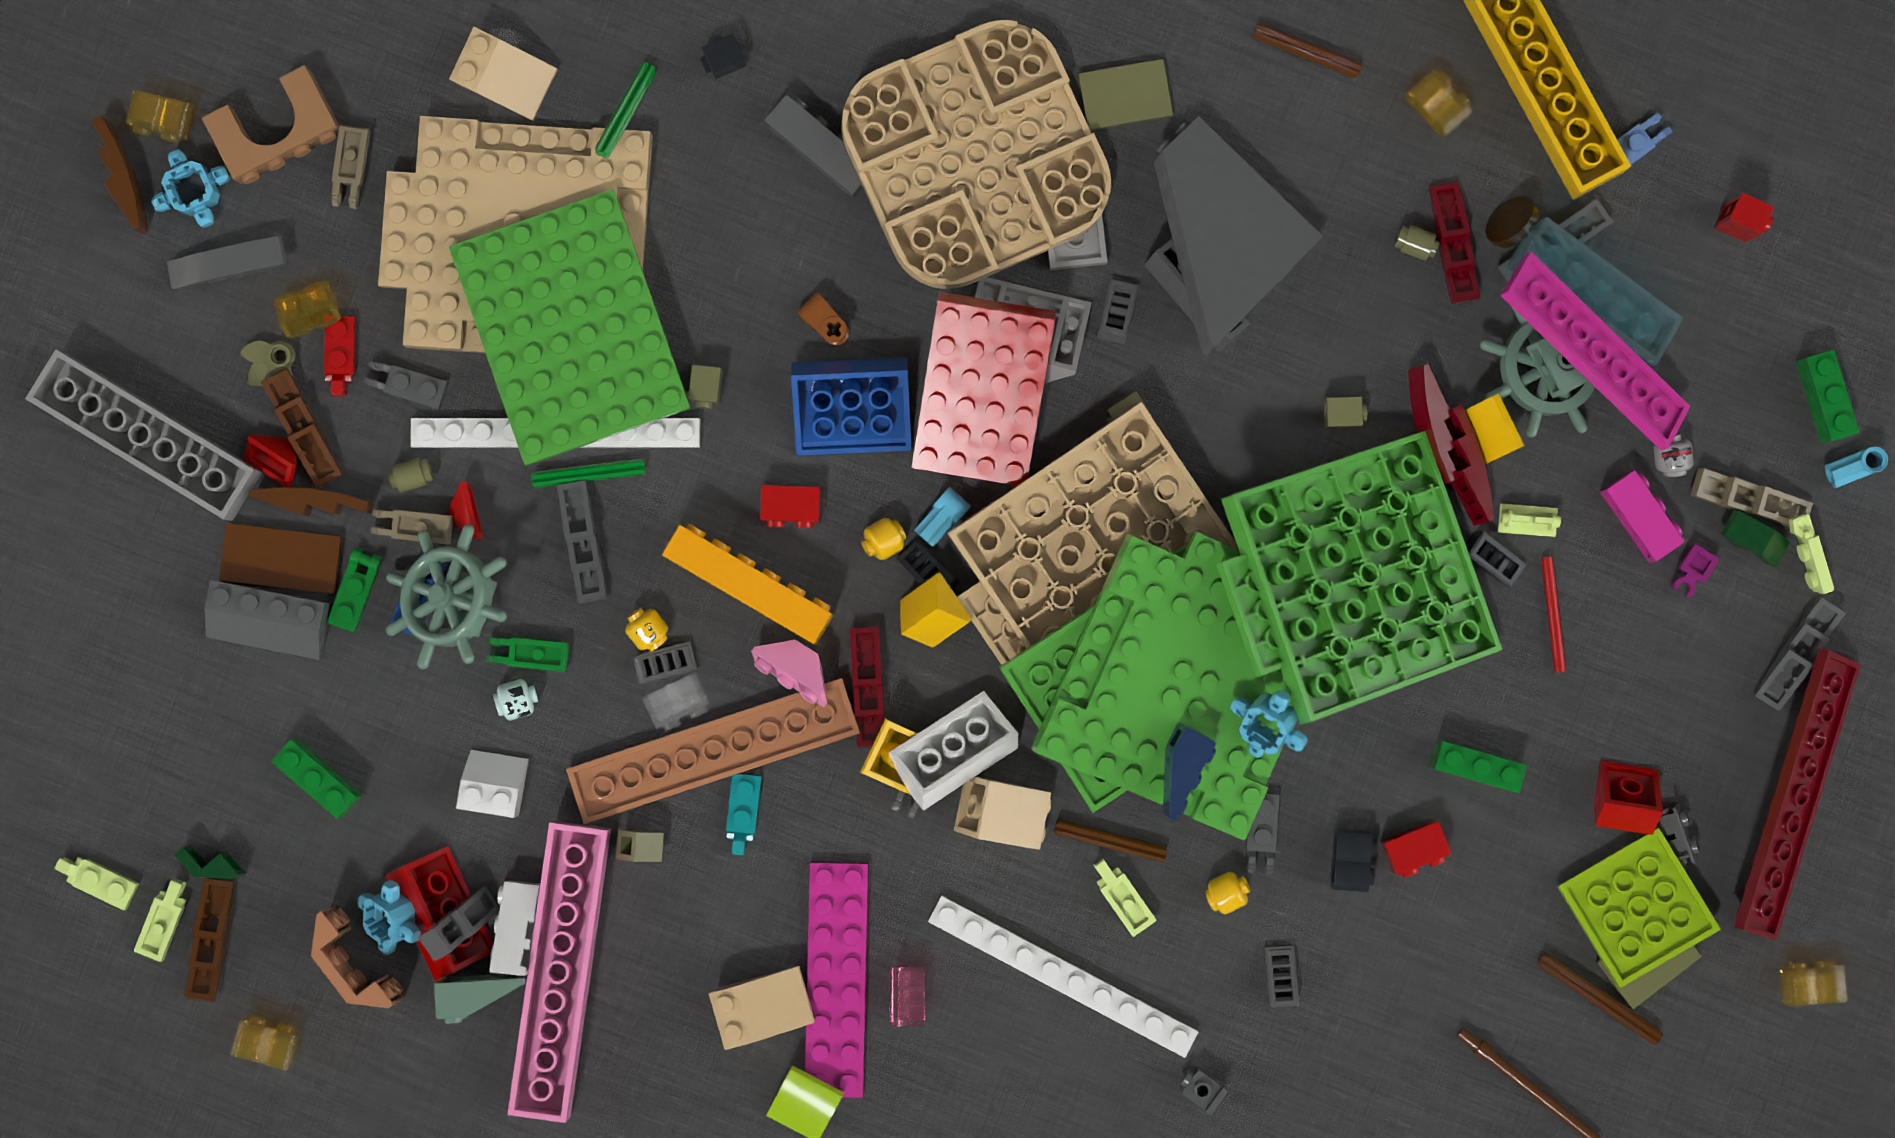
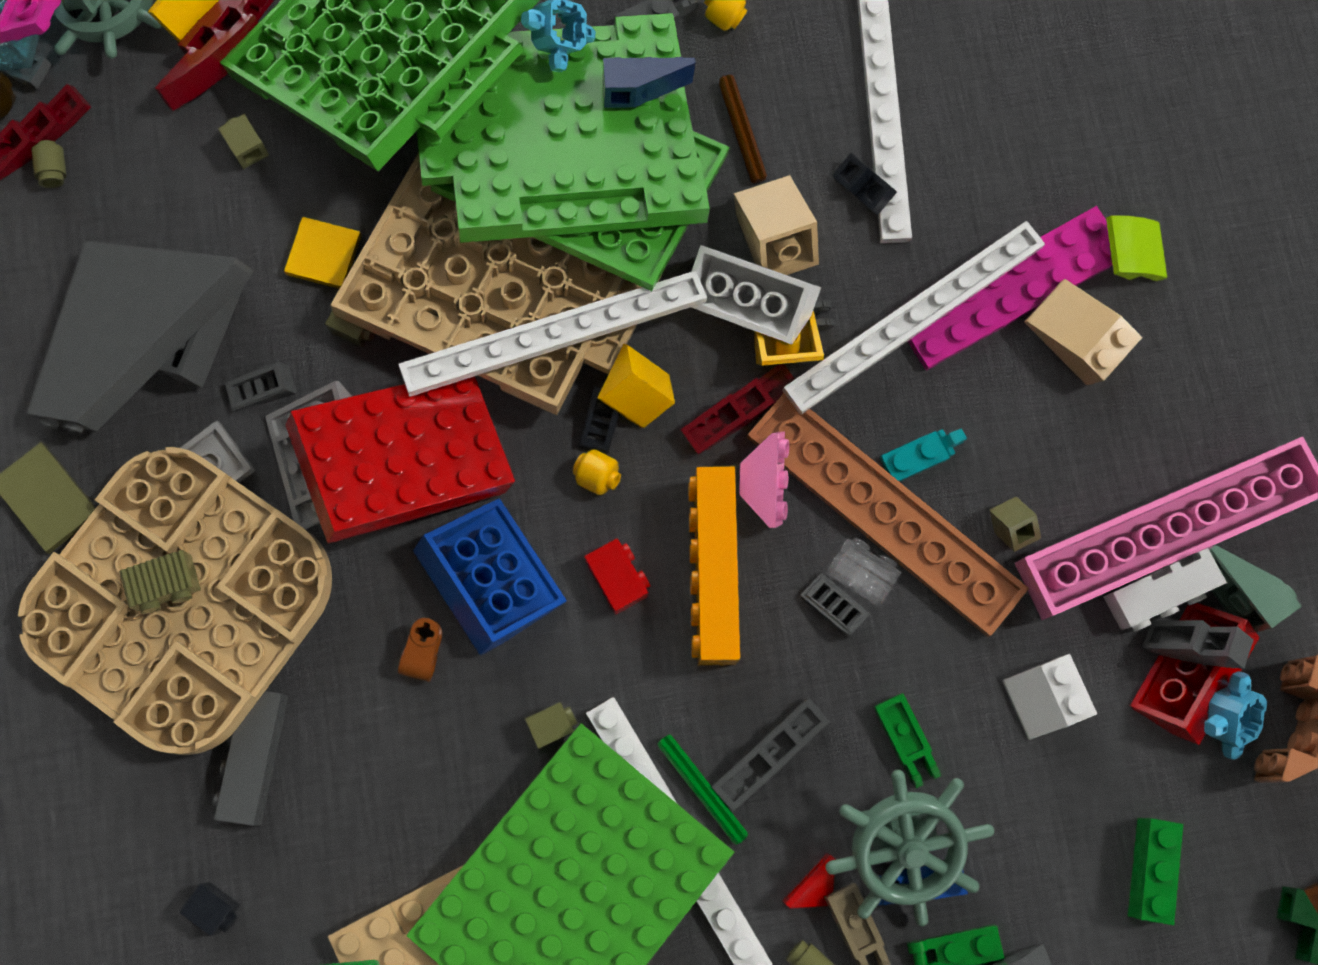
camera: 125 degrees left, 10 degrees down
(515, 699) = (958, 723): light aqua head -> none
(646, 629) = (815, 640): yellow head -> none
(855, 875) = (913, 317): none -> white plate
(907, 995) = (985, 215): clear pink brick -> none
(946, 512) = (536, 431): medium azure piece -> none
(992, 149) = (160, 581): none -> olive brick
(998, 912) = (864, 183): none -> black slope
(1009, 566) = (551, 333): none -> white plate
(1124, 899) = (784, 89): yellowish green hinge -> none
(1205, 425) = (322, 252): none -> yellow tile

